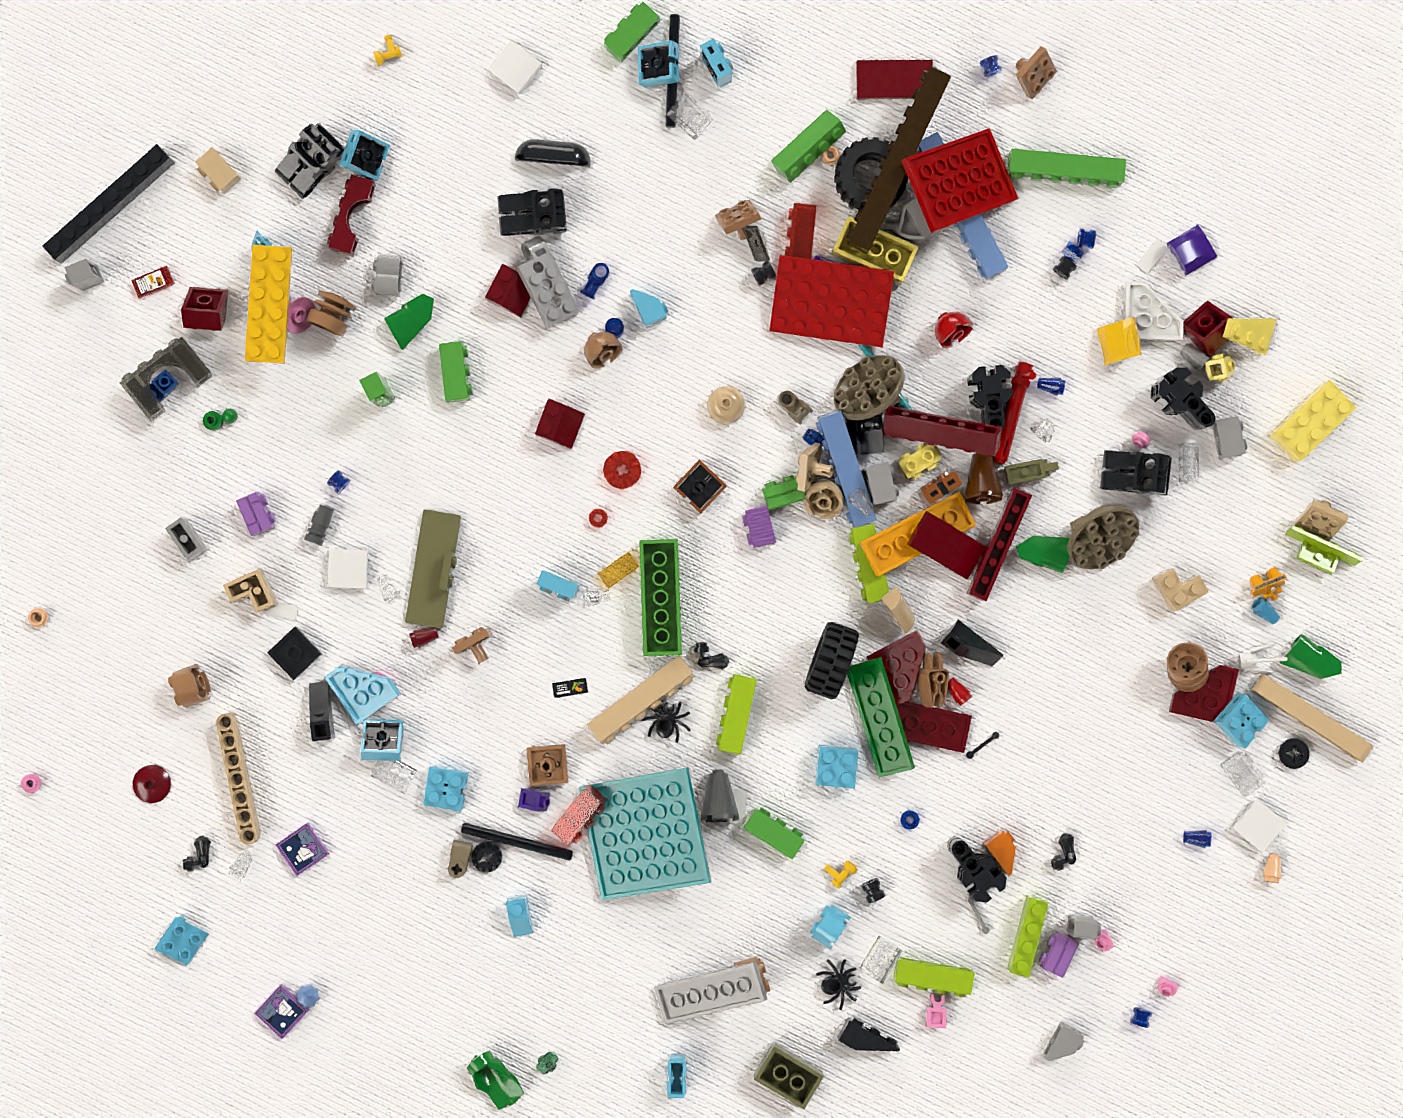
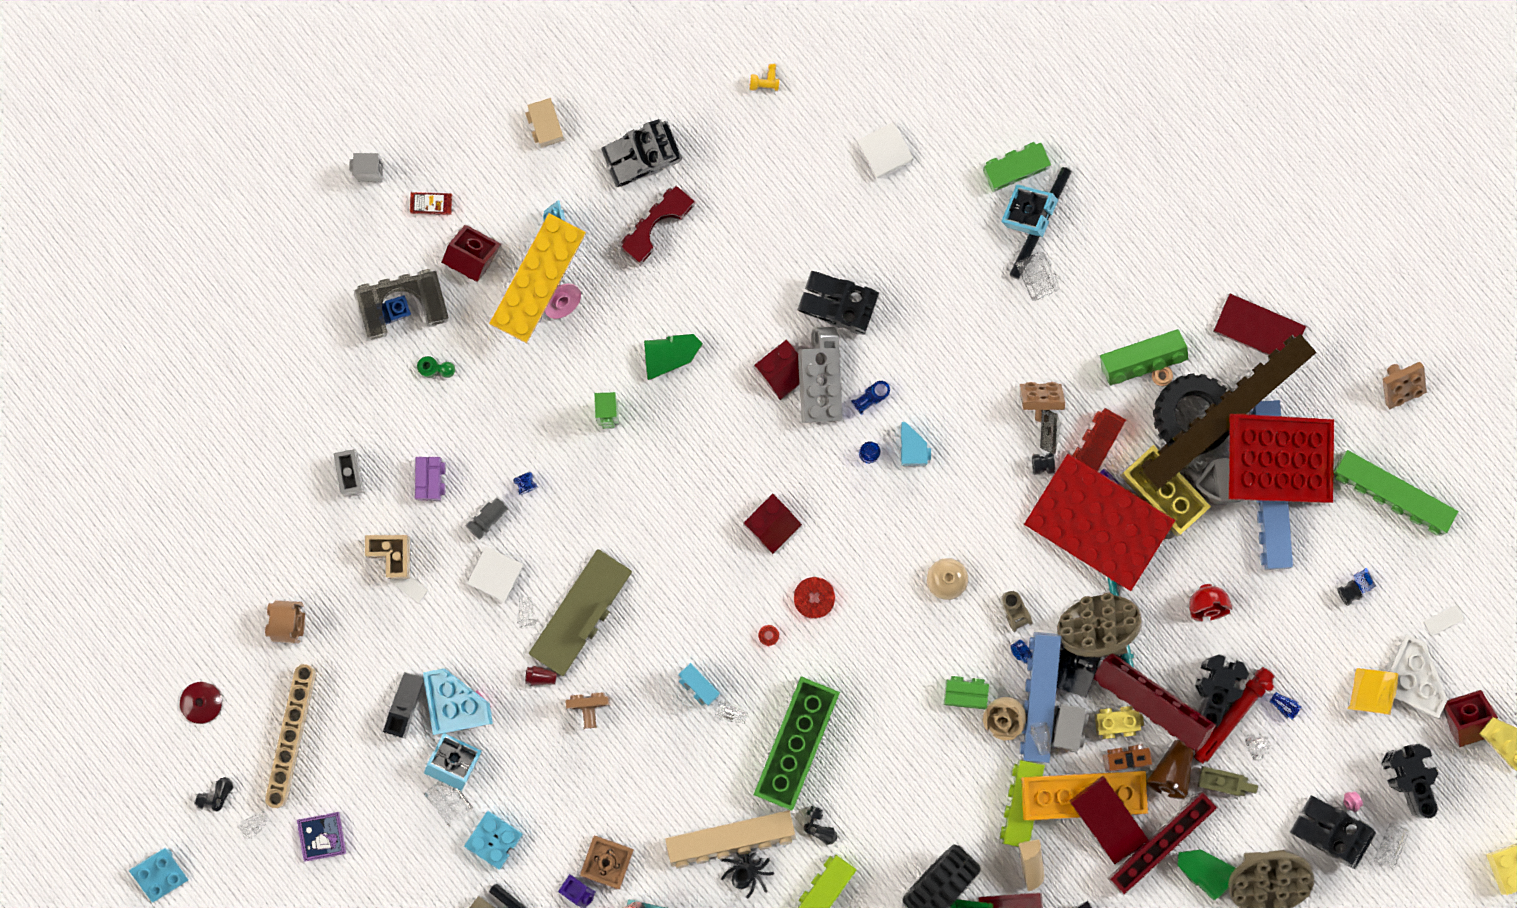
camera: 25 degrees right, 5 degrees down
(32, 617) = (158, 485): light nougat plate -> none
(36, 783) = (88, 648): bright pink plate -> none
(108, 204) = (422, 108): black brick -> none
(294, 653) = (404, 635): black plate -> none
(331, 313) = (594, 313): medium nougat wheel -> none
(364, 155) = (697, 172): piece -> none
(388, 275) = (667, 300): light grey brick -> none
(455, 371) = (691, 425): bright green brick -> none
(553, 153) = (885, 251): black brick -> none
(570, 687) = (663, 794): black sticker -> none
(600, 348) = (848, 466): medium nougat cylinder -> none
(618, 570) = (765, 696): clear yellow tile -> none
(700, 486) = (885, 649): piece -> none
(716, 63) = (1088, 241): medium azure piece -> none
(759, 526) = (927, 716): medium lavender brick -> none
(811, 468) = (1006, 680): tan plate -> none
(990, 66) = (1362, 358): clear blue wheel -> none
(1086, 238) = (1384, 573): clear blue wheel -> none
(1192, 249) = (1487, 631): dark purple slope -> none
(1194, 356) = (1444, 742): light grey cone -> none
(1214, 370) = (1464, 763): light yellow brick -> none
(1229, 437) = (1444, 838): light grey brick -> none

